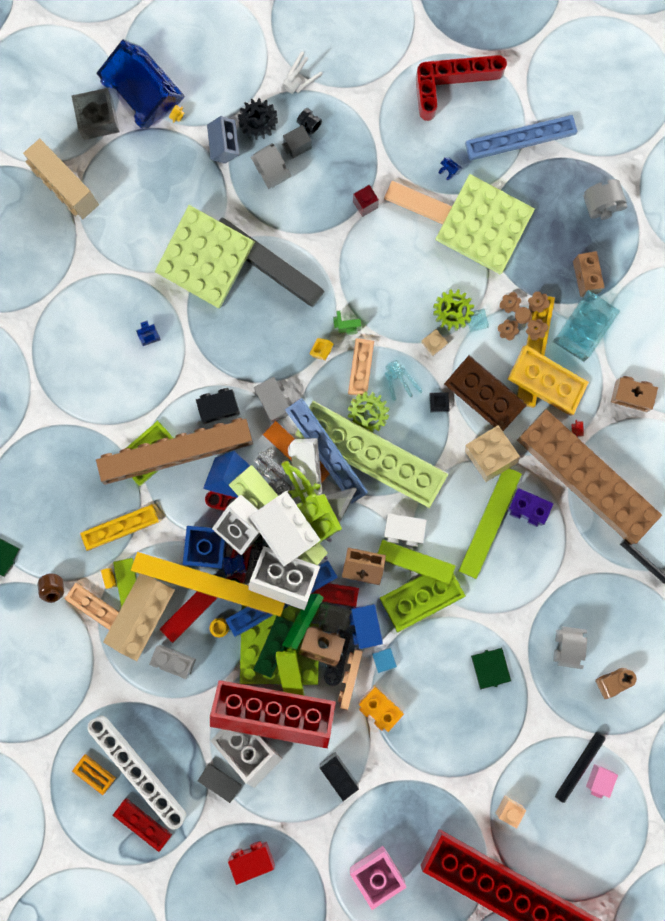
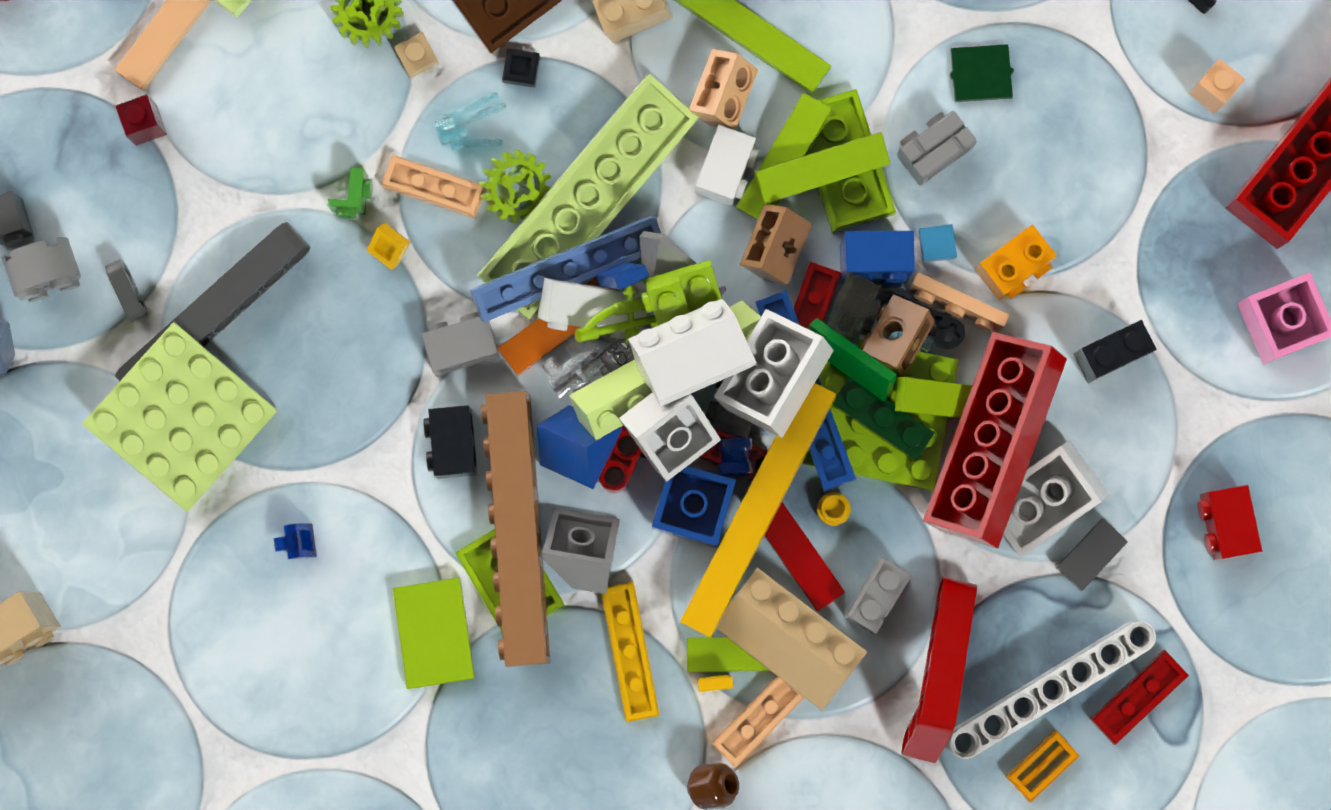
camera: 80 degrees left, 0 degrees up
(107, 707) = (943, 673): none -> red beam
(111, 417) = (433, 633): none -> lime tile
(171, 489) = (581, 548): none -> light grey slope
(269, 213) = (126, 290): none -> dark grey beam
(325, 481) = (622, 275): none -> blue tile
(413, 585) = (822, 167): none -> lime tile
(439, 649) = (935, 147): none -> light grey brick
(448, 519) = (723, 89): none -> light nougat brick

